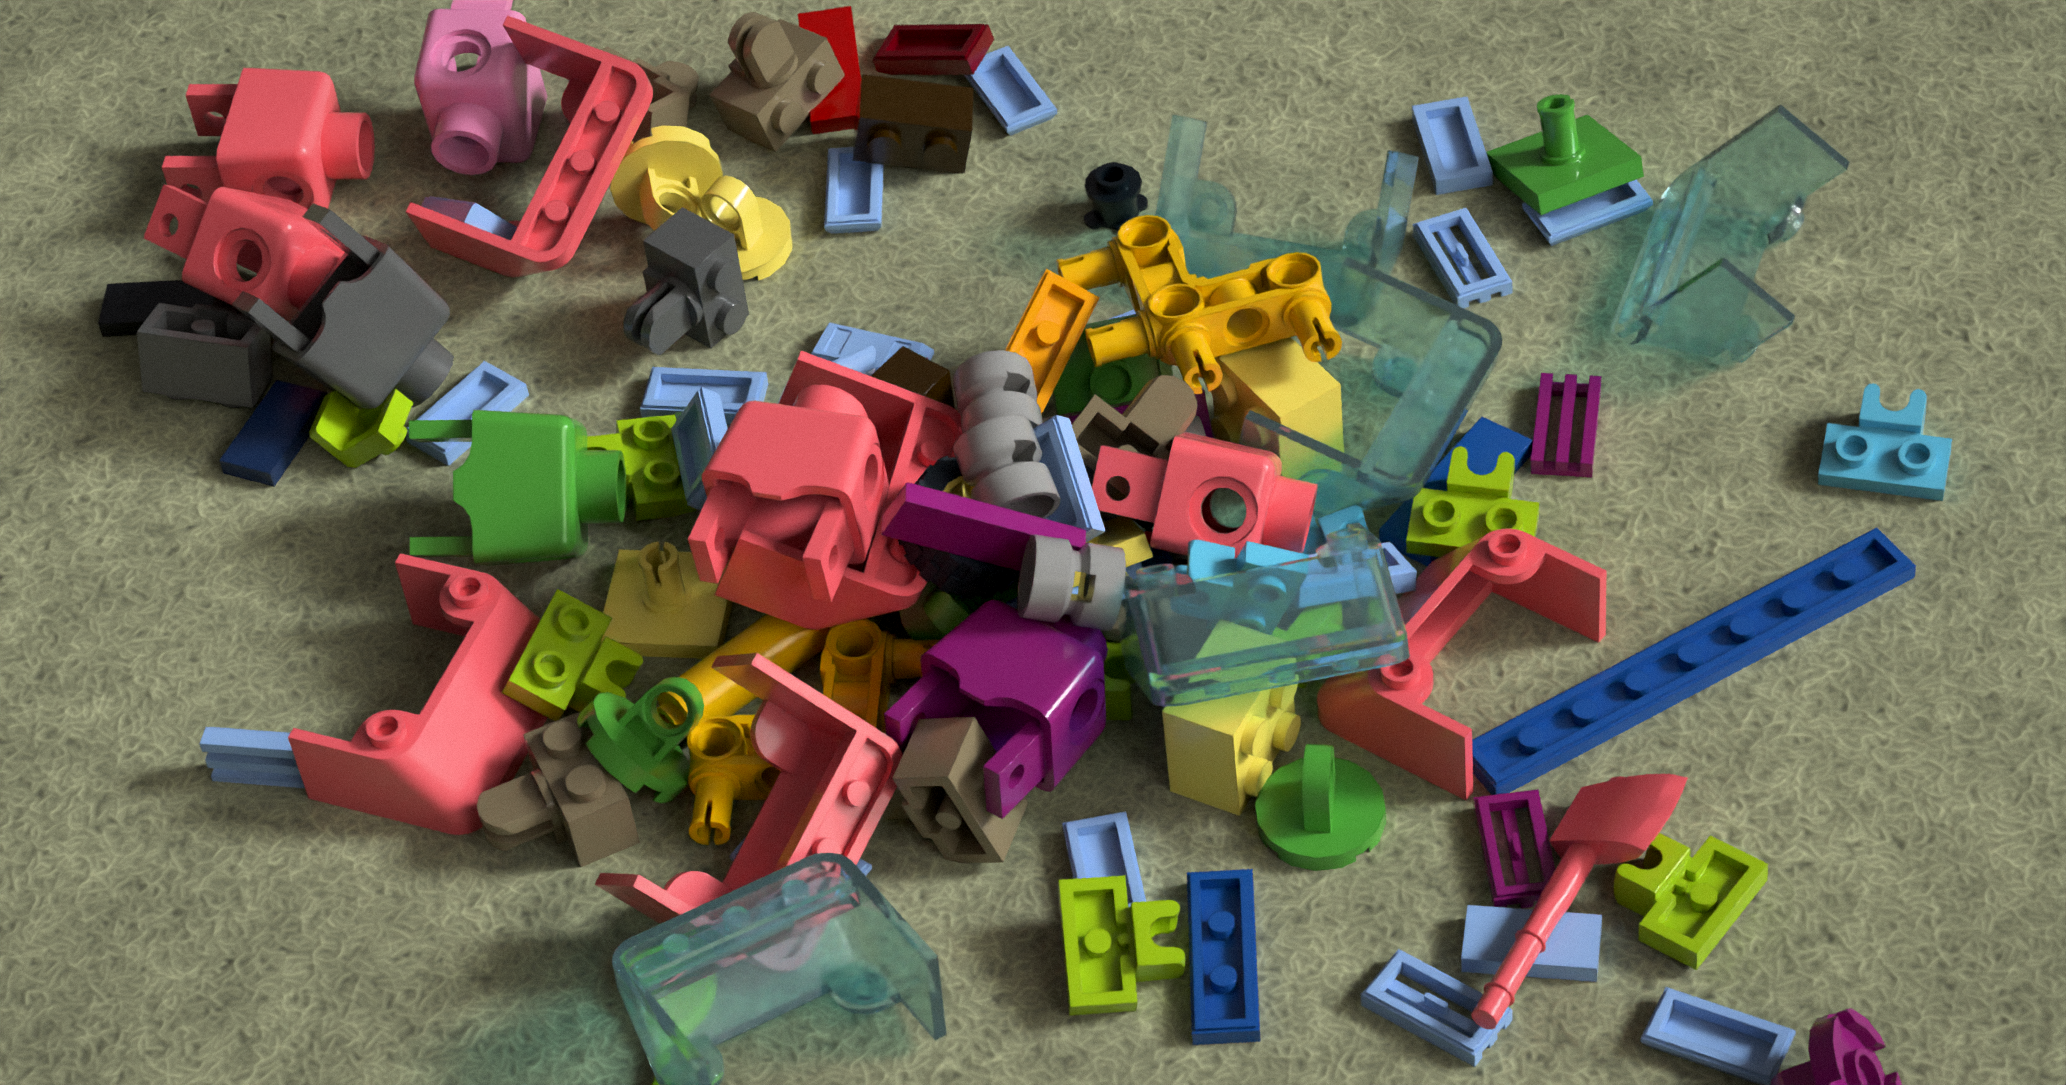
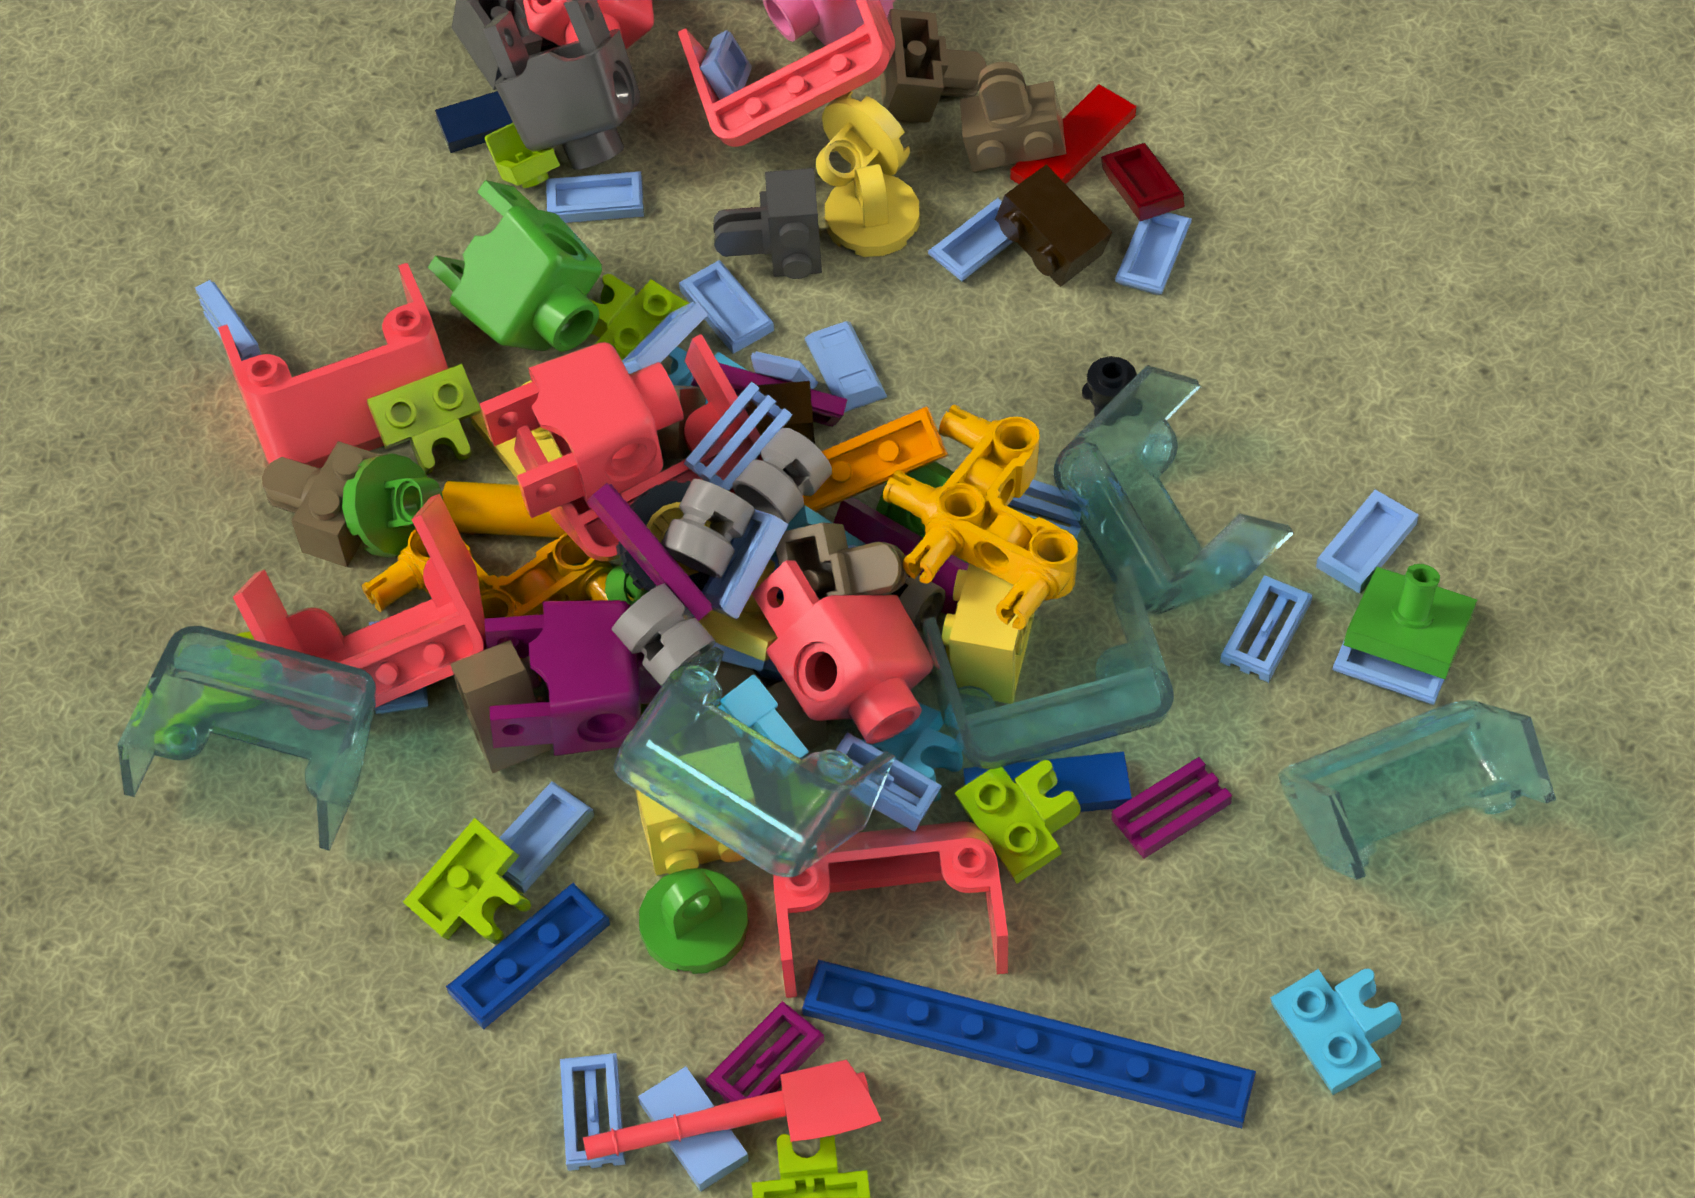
camera: 45 degrees right, 10 degrees up
(922, 371) = (765, 405): none -> light blue tile

